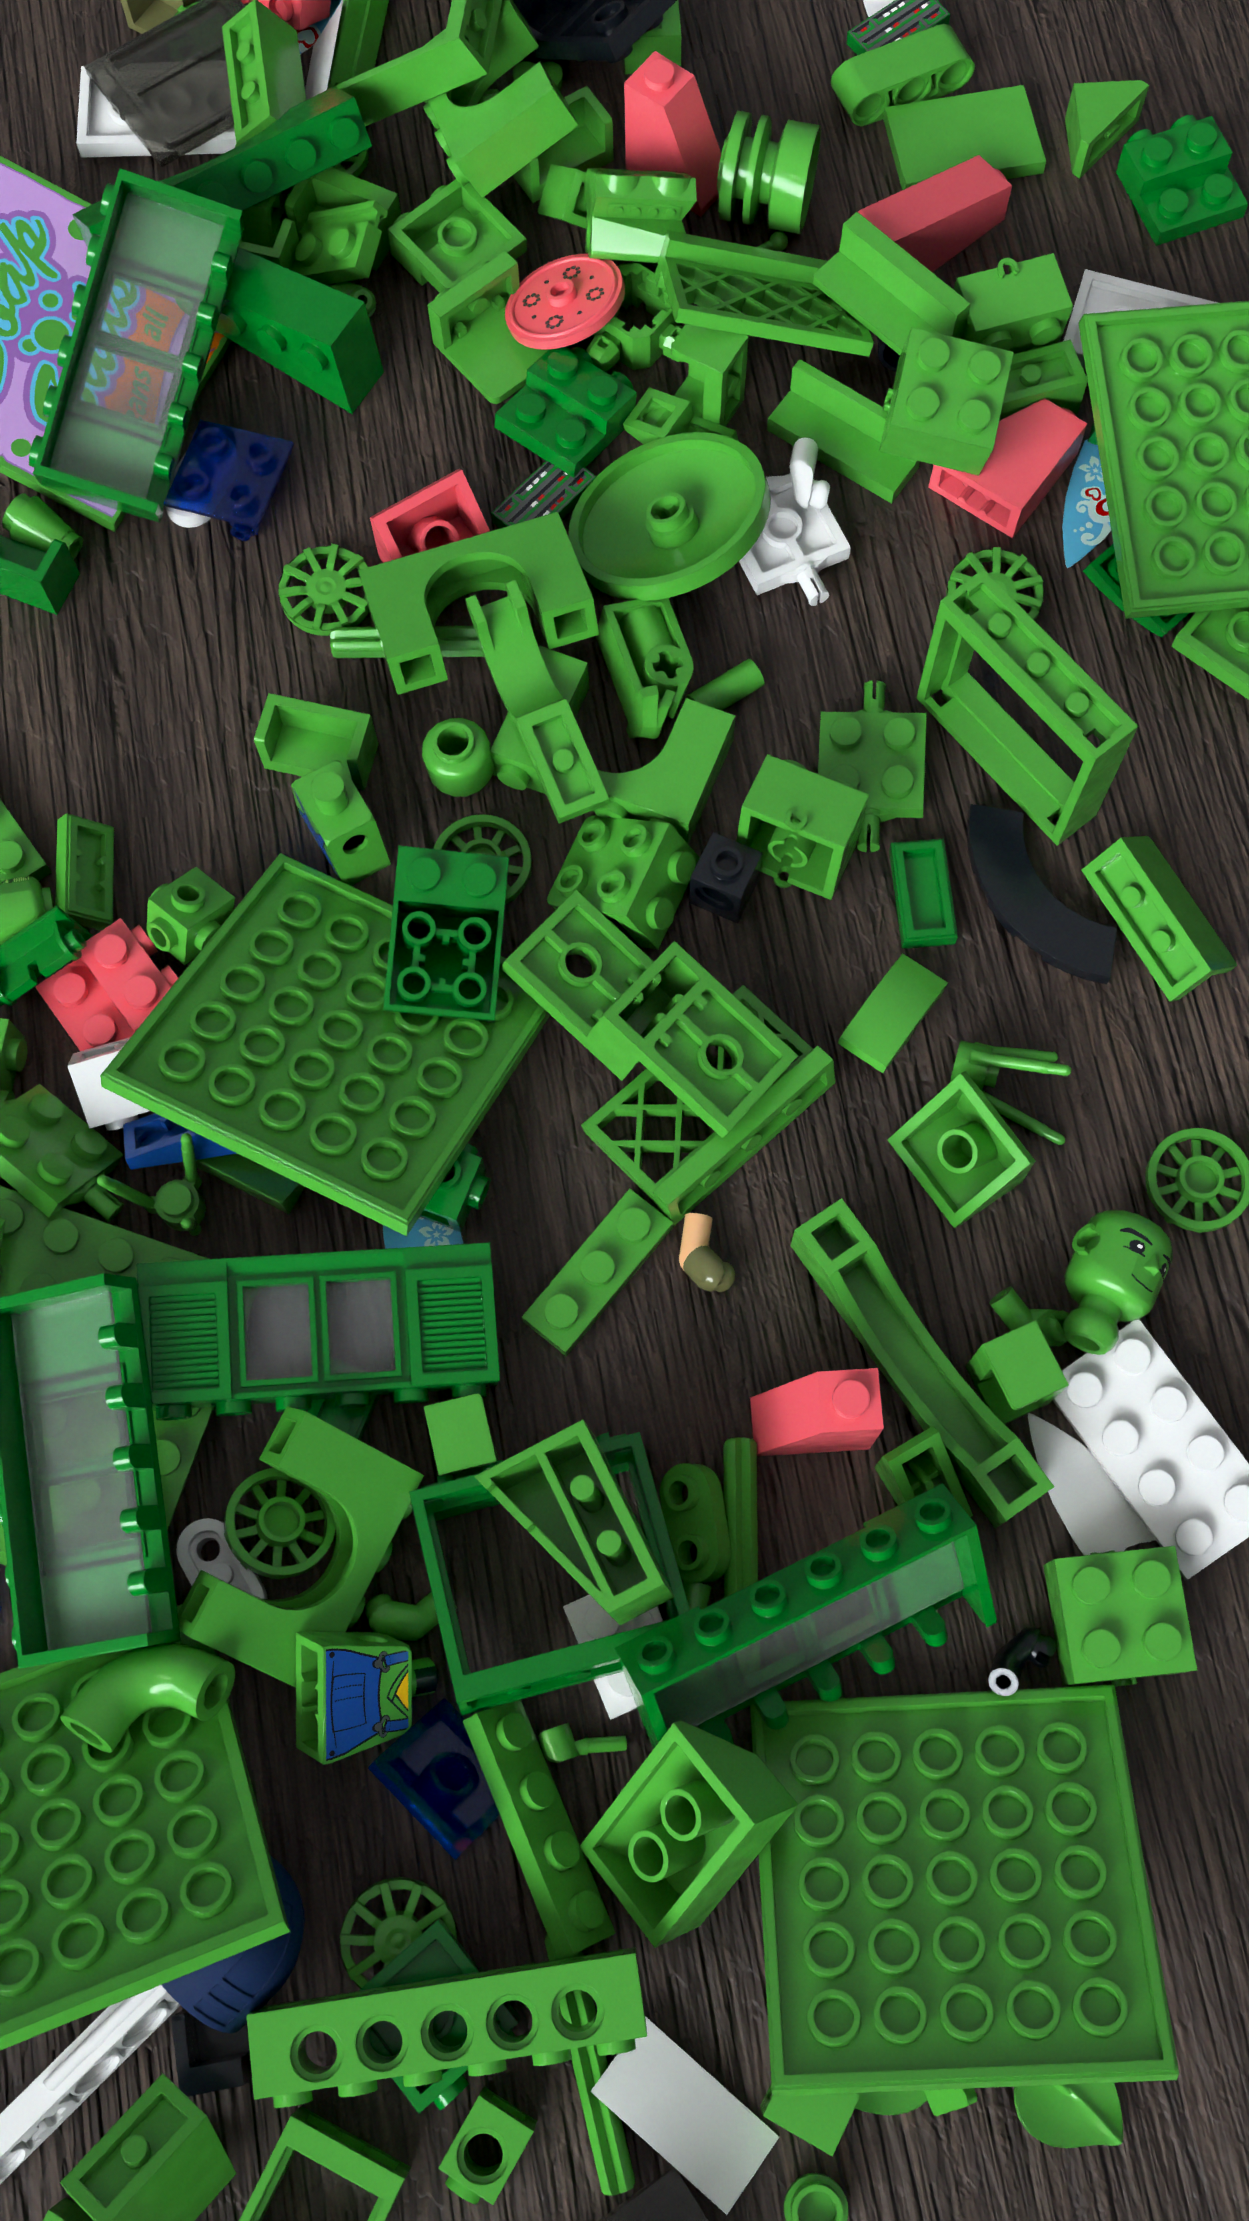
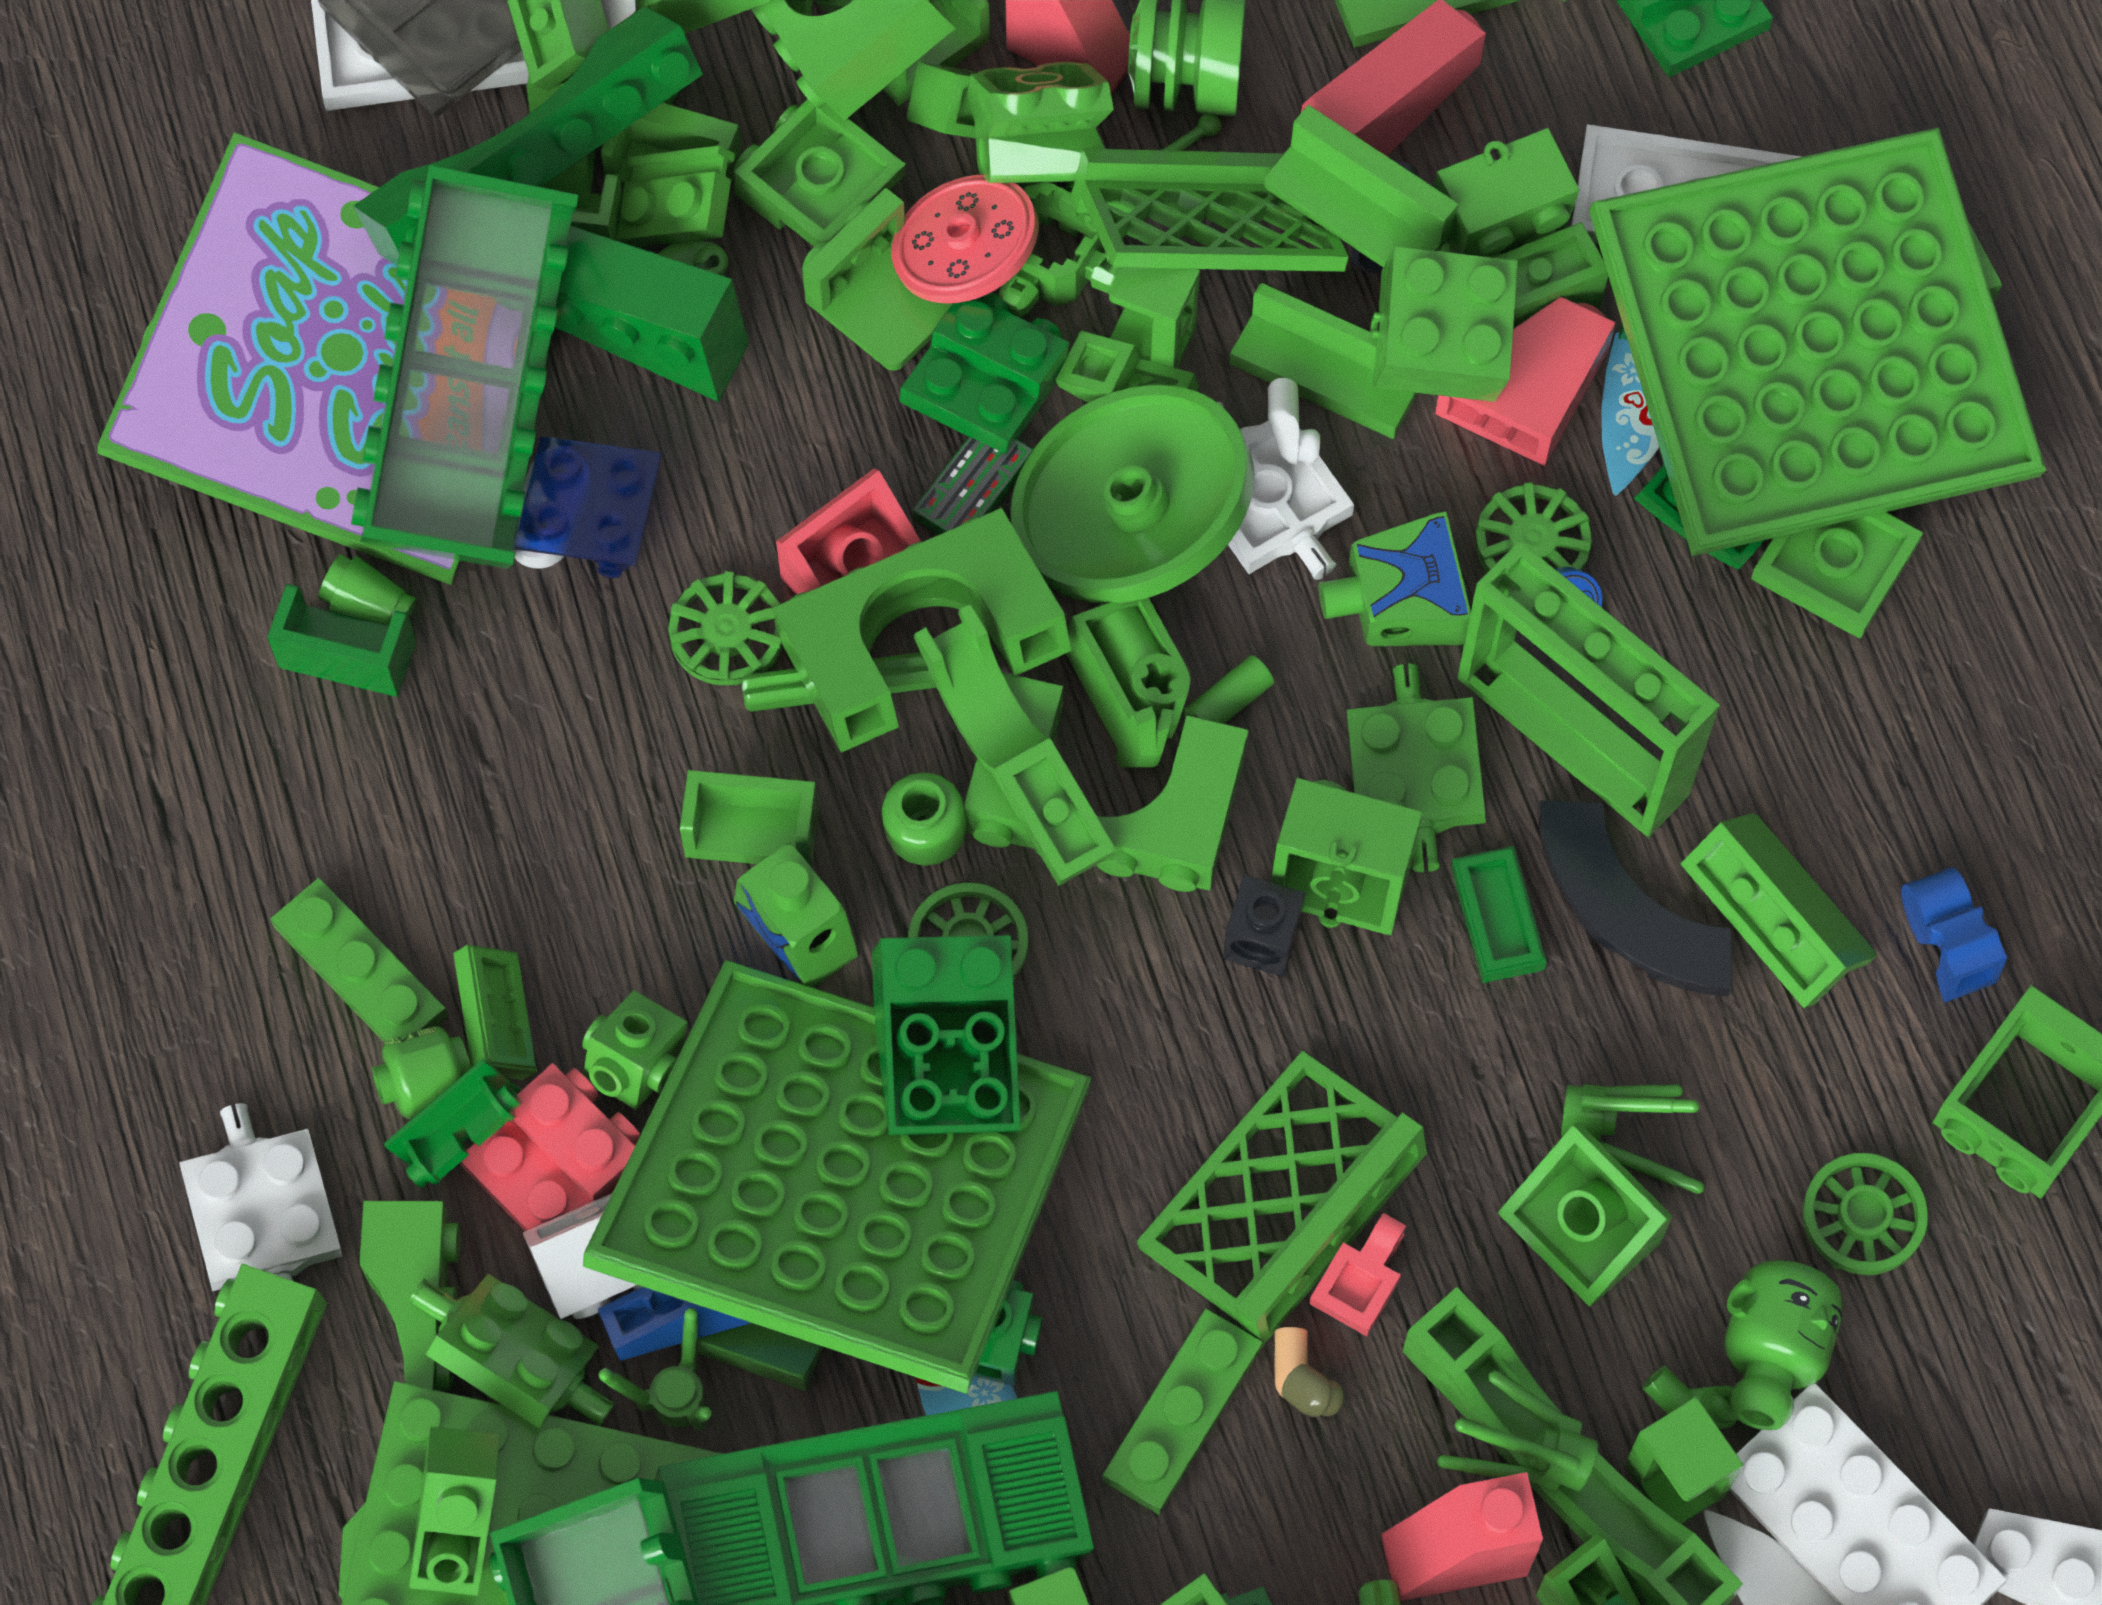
camera: 10 degrees left, 5 degrees down
(628, 873) = (1143, 935): bright green bracket -> none
(649, 1012) = (1201, 1098): bright green bracket -> none
(761, 1182) = (1359, 1282): none -> coral plate
(881, 617) = (1403, 586): none -> bright green torso
(892, 1013) = (1483, 1062): bright green slope -> none
(904, 1355) = (1559, 1455): none -> bright green plant

